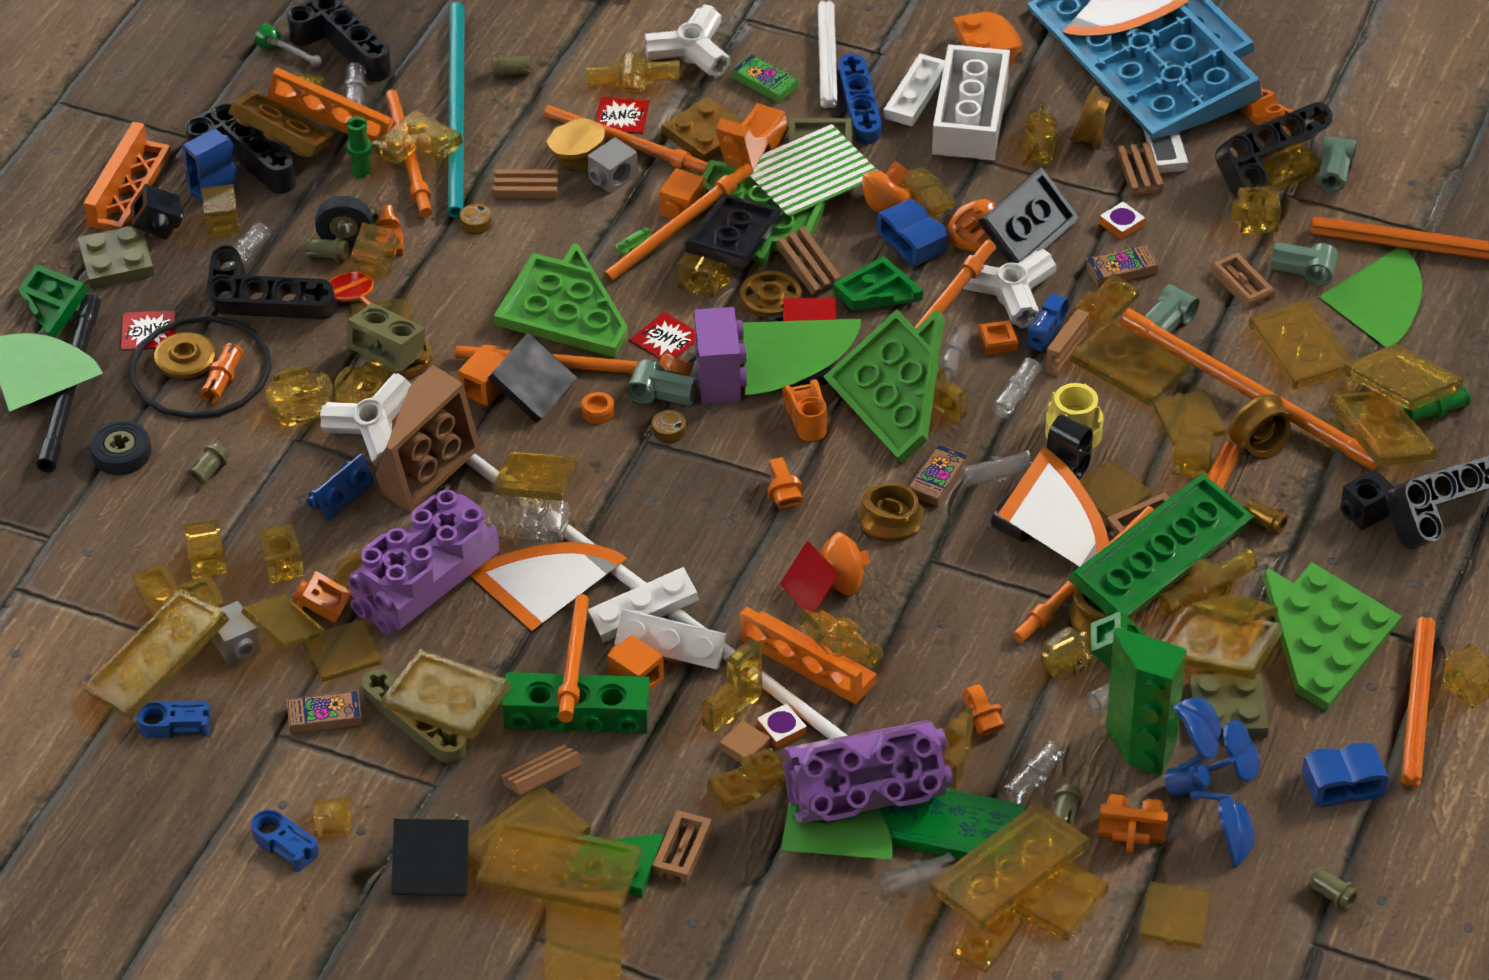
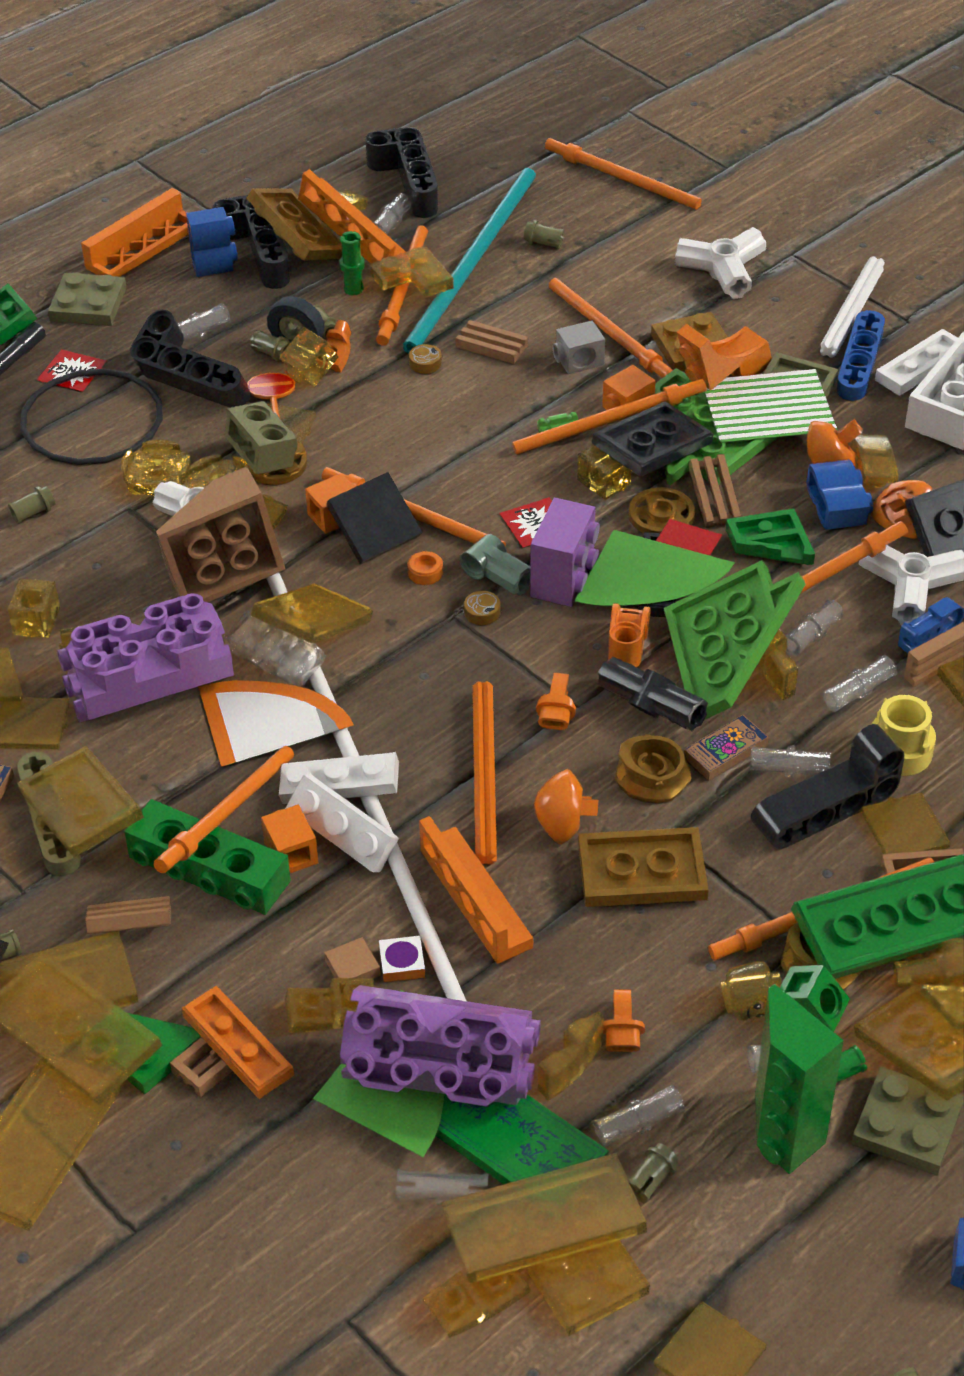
camera: 25 degrees right, 0 degrees up
(156, 211) = (141, 269): black brick -> none
(185, 355) = (83, 402): pearl gold wheel -> none
(220, 210) = (199, 284): clear yellow brick -> none
(221, 373) = (102, 427): orange pin -> none
(270, 38) = (347, 159): hinge -> none
(322, 596) = (39, 663): orange bracket -> none
(342, 487) = (131, 566): blue hinge -> none
(563, 304) = (452, 460): bright green wing -> none
(575, 141) = (556, 314): hat -> none
(623, 114) = (624, 306): sticker -> none
(633, 73) = (652, 271): clear yellow pin -> none
(675, 364) = (519, 548): orange tile -> none
(697, 830) = (238, 1042): none -> orange tile
(741, 688) = (379, 901): clear yellow plate -> none
(753, 556) = (484, 773): none -> orange axle
(765, 78) = (778, 311): tile -> none
(809, 578) = (520, 810): red sticker -> none
(839, 636) = (510, 883): clear yellow plate -> none
(858, 450) = (652, 693): none -> black piece
(928, 590) = (642, 867): none -> pearl gold plate
(997, 337) = (871, 626): orange tile -> none
(1056, 510) = (825, 826): white sticker -> none
(1133, 824) = (715, 1225): orange hips -> none
(1191, 778) = (825, 1143): blue plant -> none

